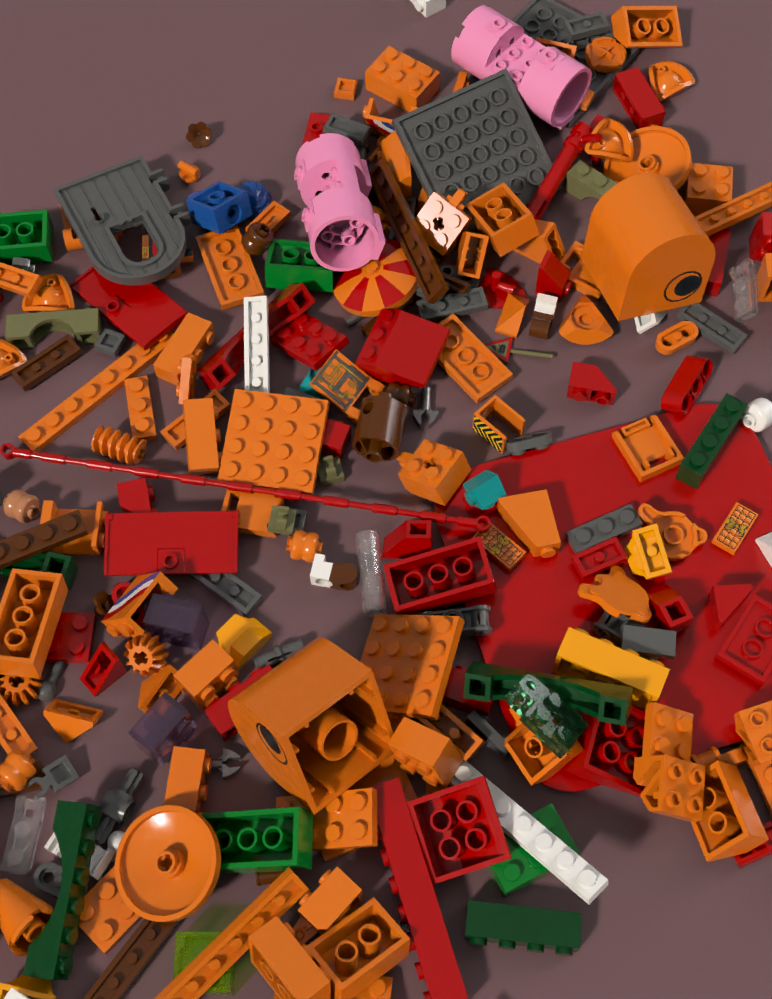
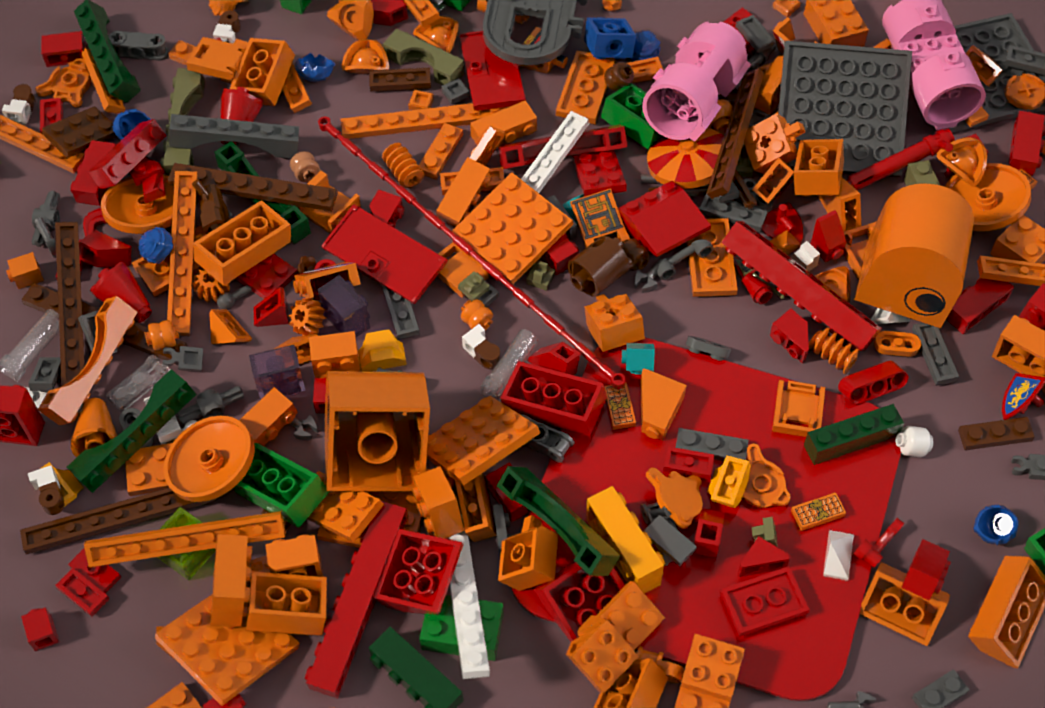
camera: 35 degrees right, 5 degrees down
(82, 371) = (420, 100): none -> orange tile
(454, 354) = (701, 247): none -> dark grey bar
(505, 414) = (701, 307): orange piece -> none
(527, 362) = (758, 290): none -> red cone
(538, 710) = (541, 522): clear green plate -> none
(565, 336) = (801, 286): none -> red brick
(634, 375) = (833, 350): none -> orange piece
(713, 576) = (766, 531): none -> olive tile
(744, 290) = (986, 342): clear plate -> none

